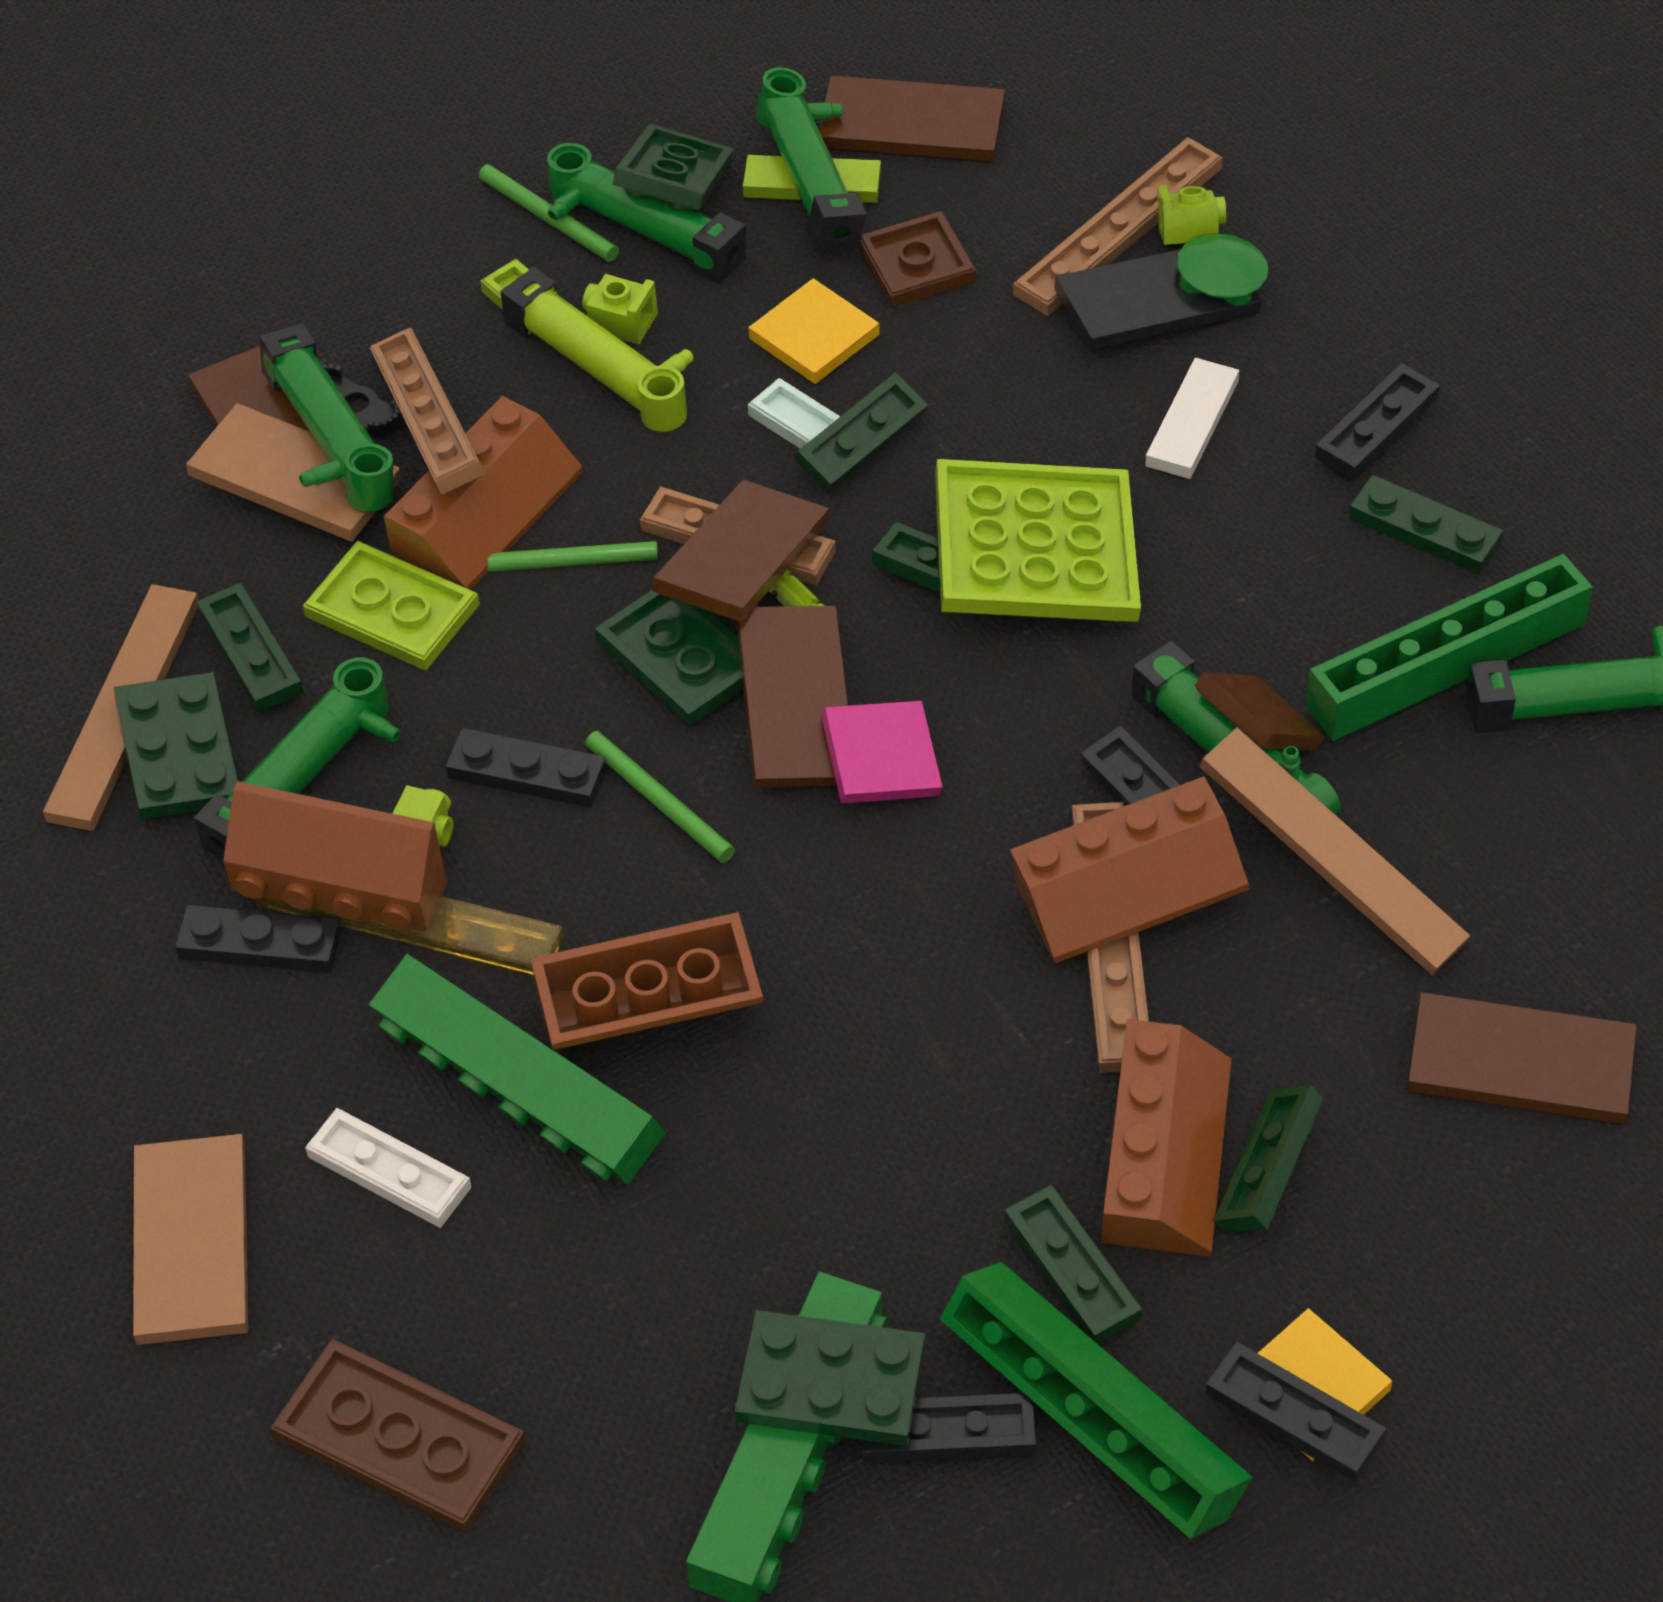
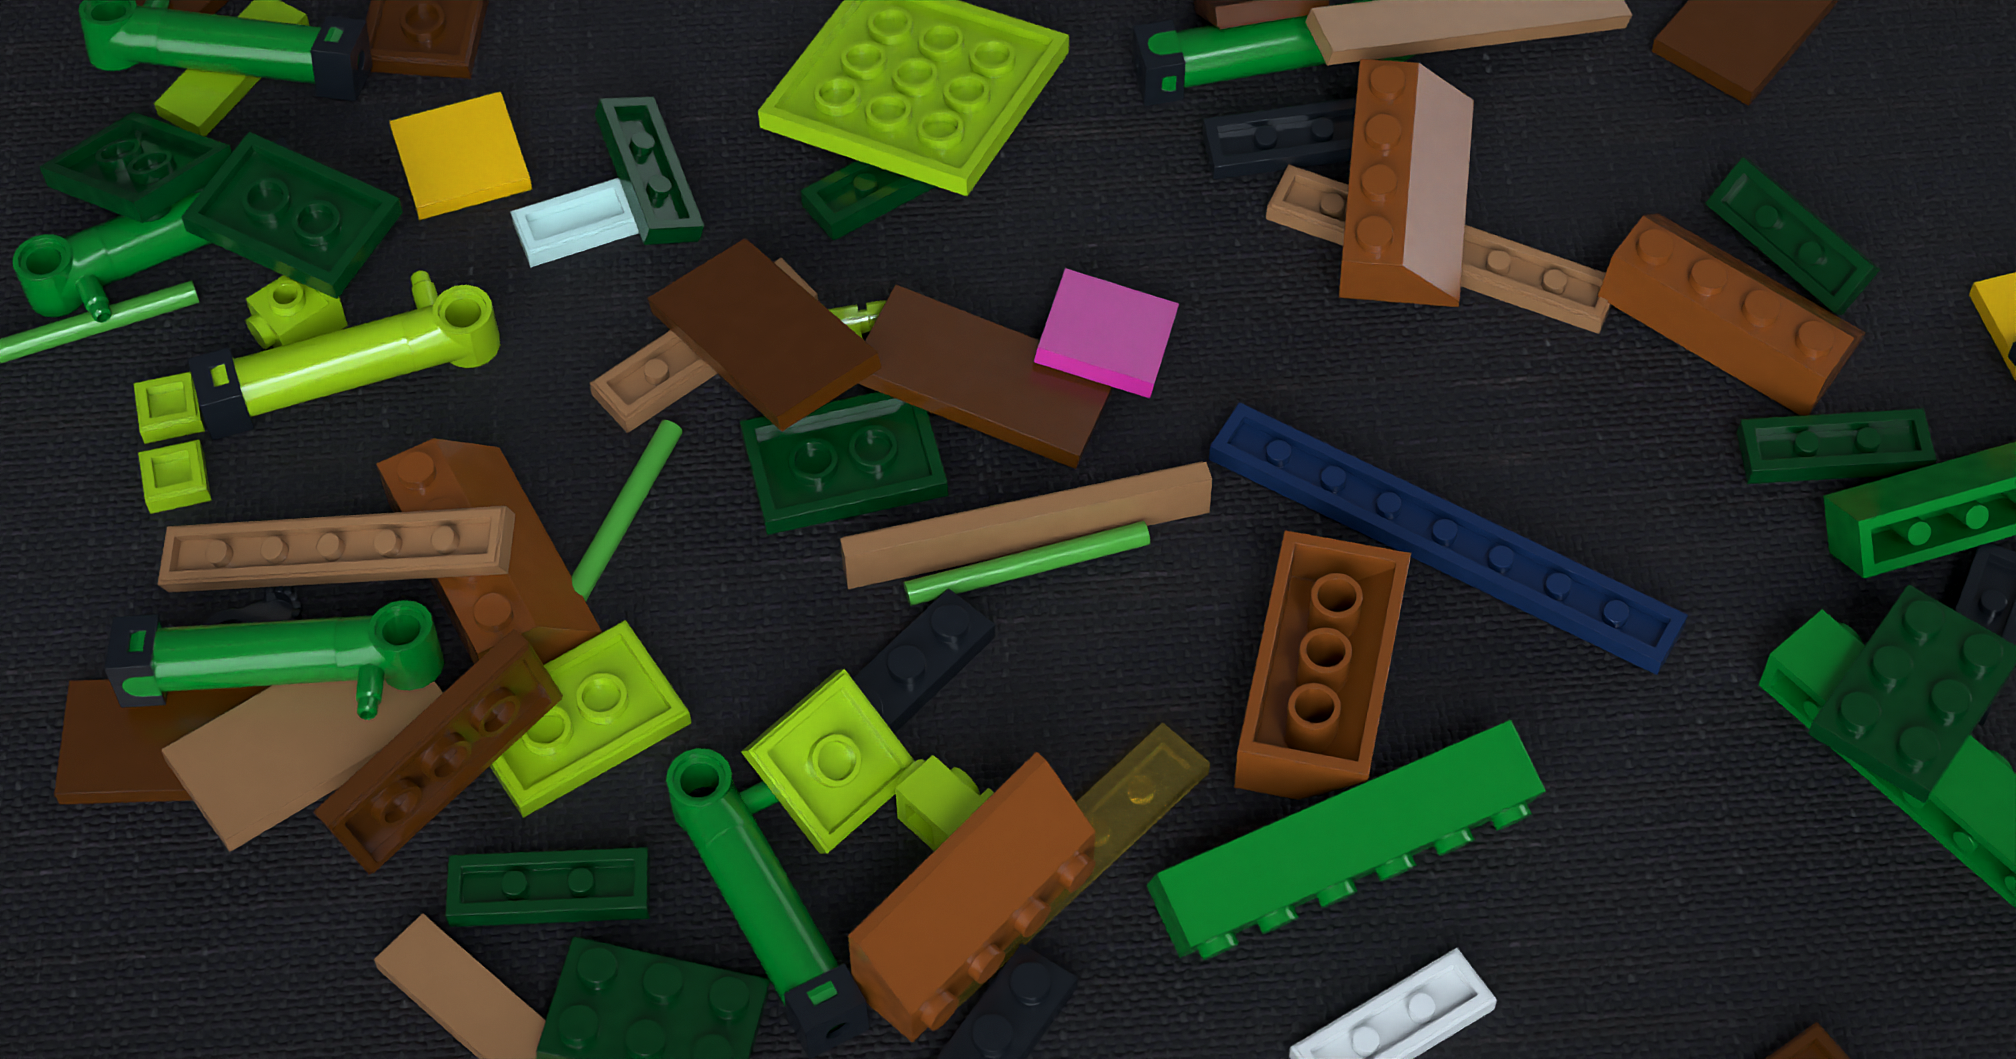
camera: 65 degrees left, 5 degrees up
(296, 531) = (440, 752): none -> reddish brown tile
(417, 744) = (830, 761): none -> lime tile
(460, 316) = (174, 476): none -> lime tile
(670, 255) = (292, 215): none -> dark green plate
(684, 777) = (1024, 524): none -> medium nougat tile
(825, 1041) = (1449, 538): none -> dark blue plate

